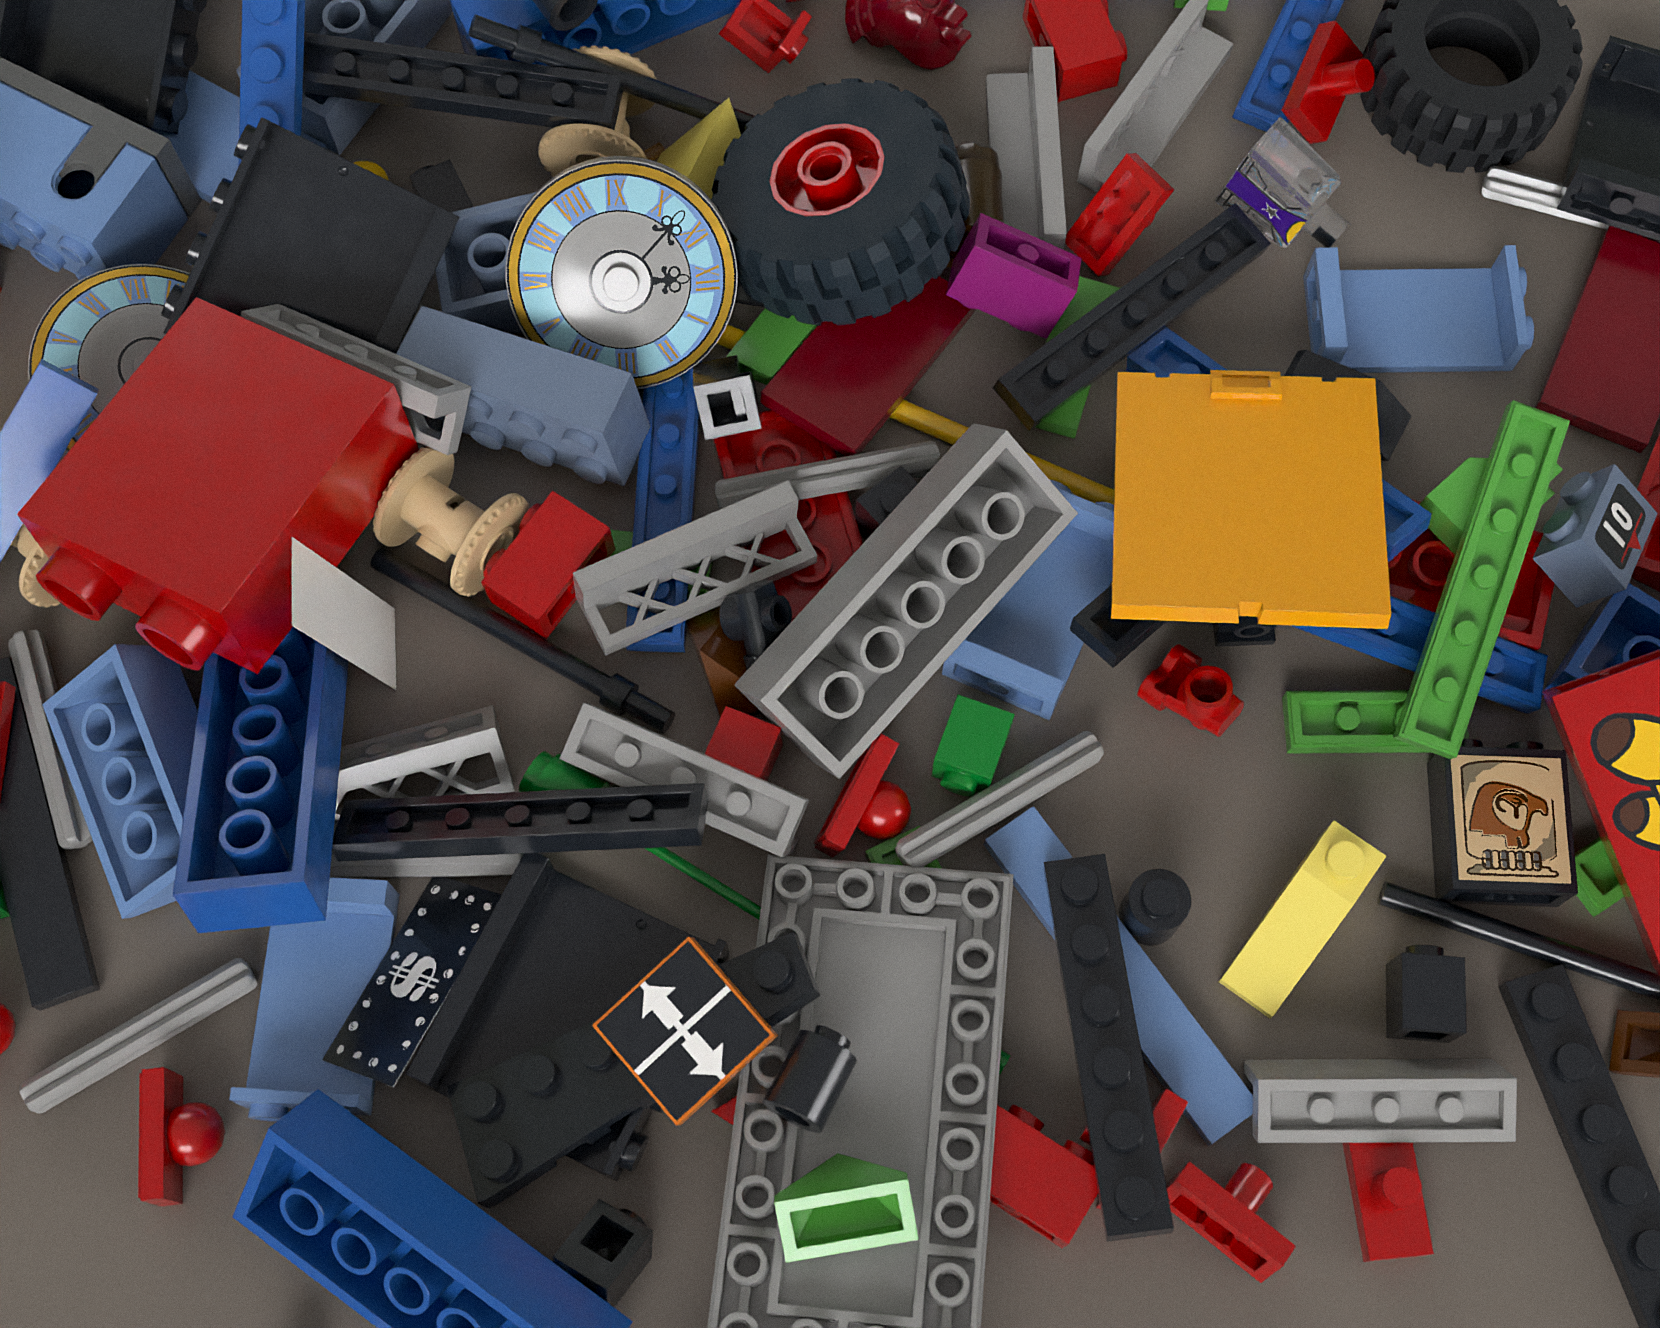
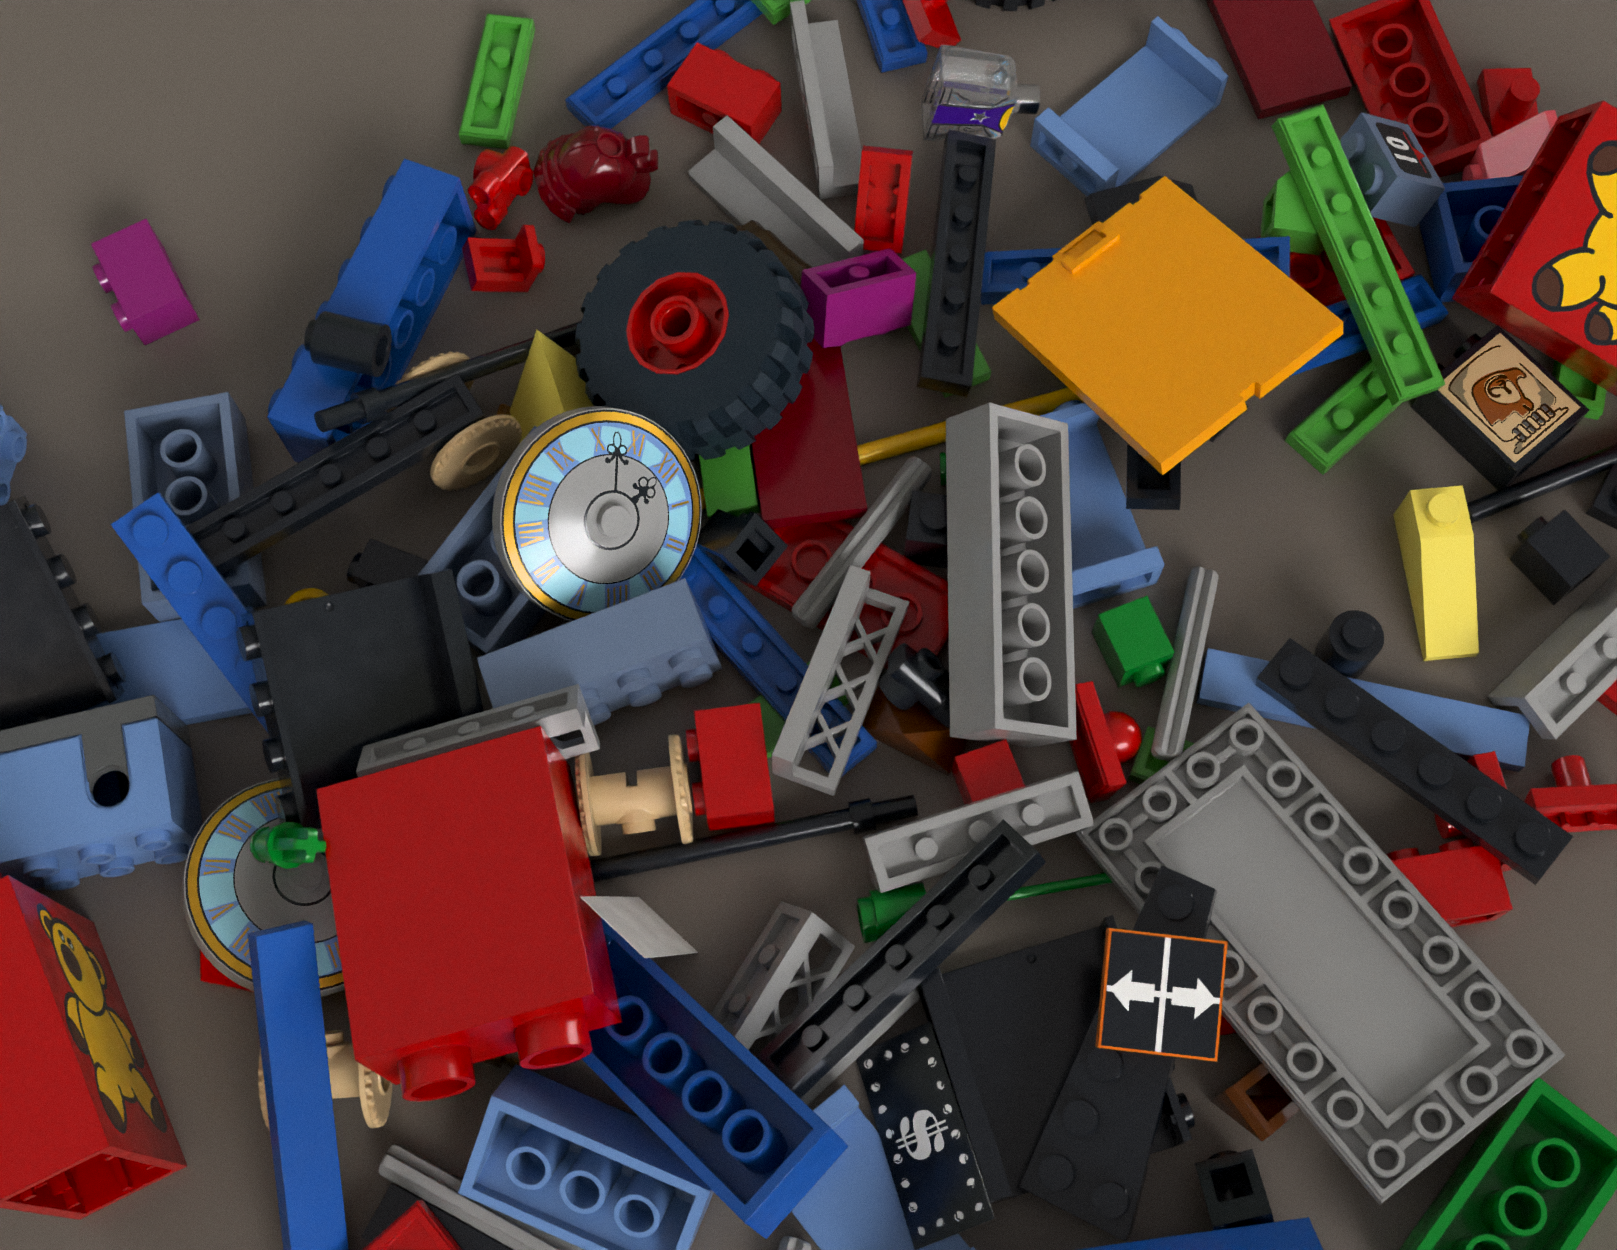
camera: 40 degrees left, 0 degrees up
(143, 324) = (286, 845): none -> green axle
(692, 1198) = (1257, 1103): none -> reddish brown slope
(811, 1078) = (1268, 950): black brick -> none
(844, 1209) = (1371, 1012): bright green slope -> none
(1192, 691) = (1226, 487): red plate -> none

